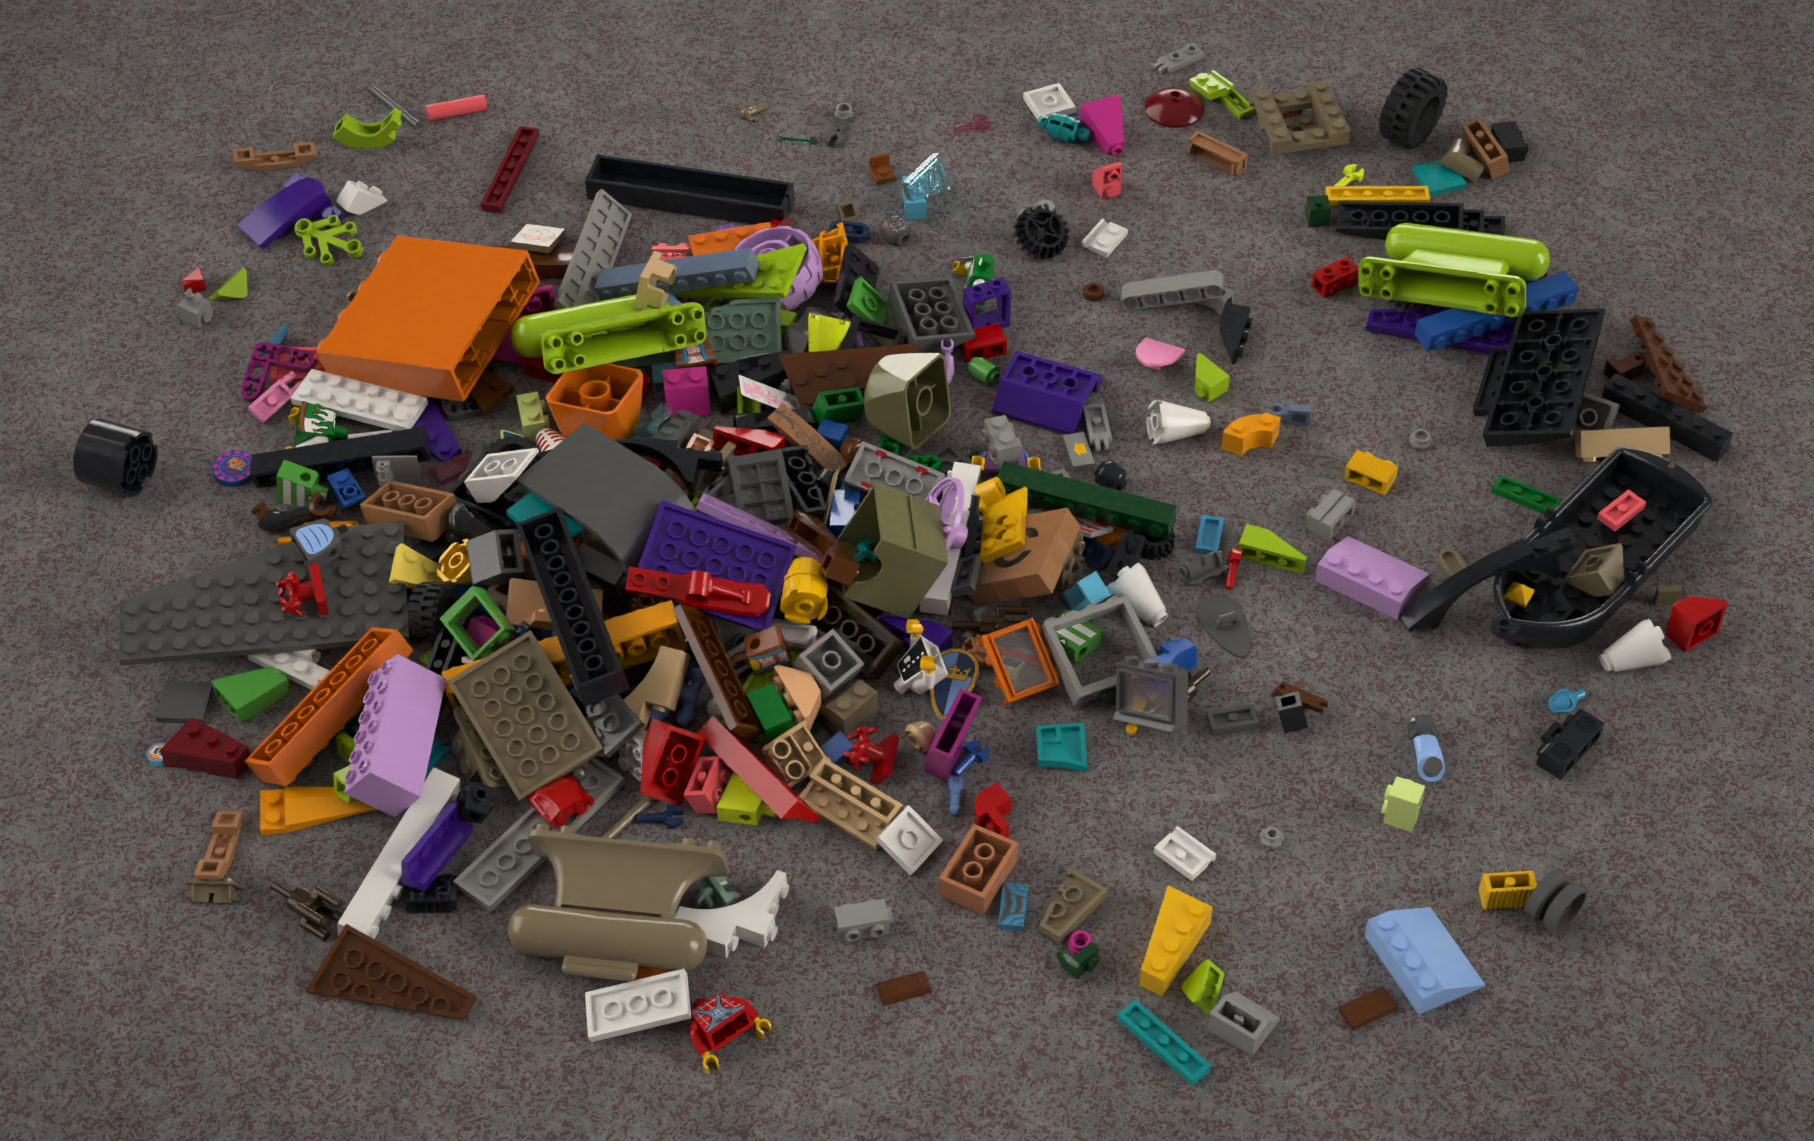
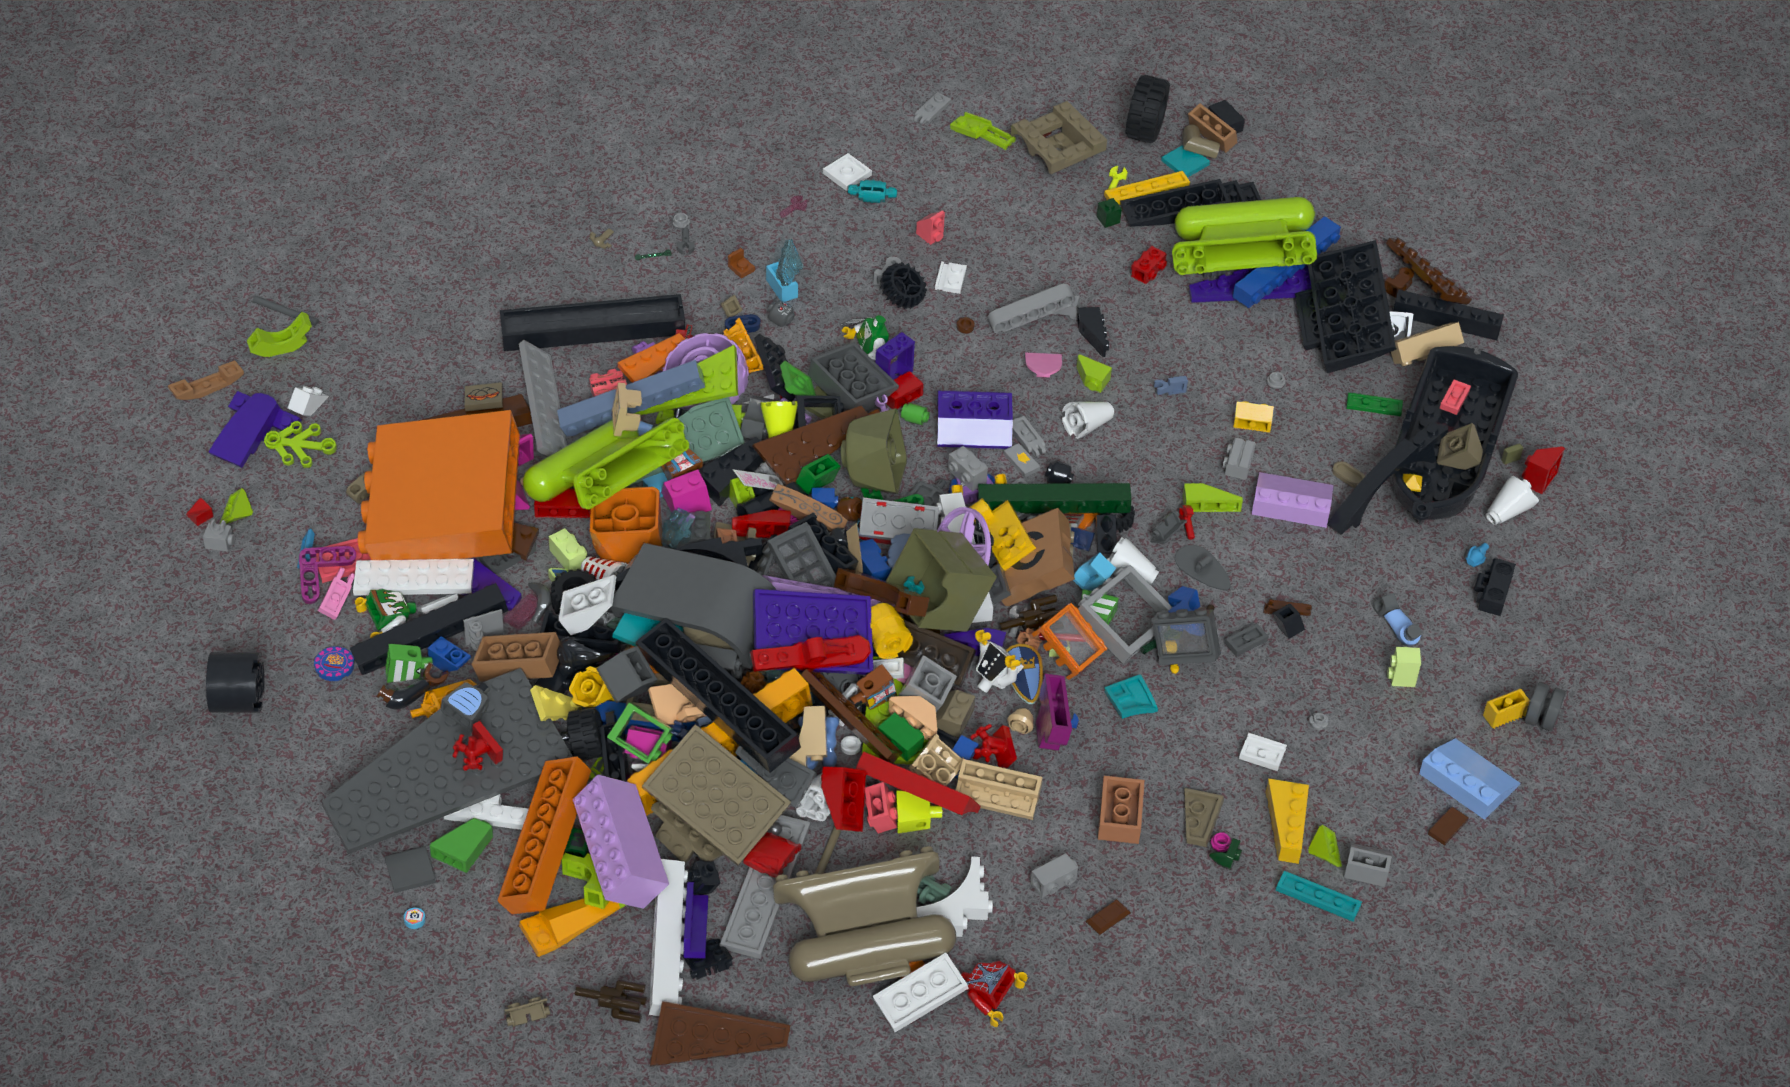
camera: 25 degrees left, 0 degrees up
(205, 750) = (457, 902): dark red wedge -> none
(221, 847) = (512, 974): medium nougat slope -> none
(456, 107) = (343, 298): coral piece -> none
(510, 169) = (423, 341): dark red plate -> none
(664, 817) = (855, 844): dark blue bar -> none
(909, 840) = (1057, 803): white plate -> none
(955, 787) = (1066, 753): medium blue piece -> none
(990, 808) = (1104, 761): red brick -> none
(1013, 906) = (1157, 830): dark azure tile -> none
(1105, 122) = (907, 179): dark pink slope -> none
(1174, 107) = (948, 151): dark red dish -> none
(1209, 534) = (1156, 500): dark azure tile -> none
(1217, 153) = (1005, 183): medium nougat container -> none
(1250, 433) = (1148, 409): light orange brick -> none

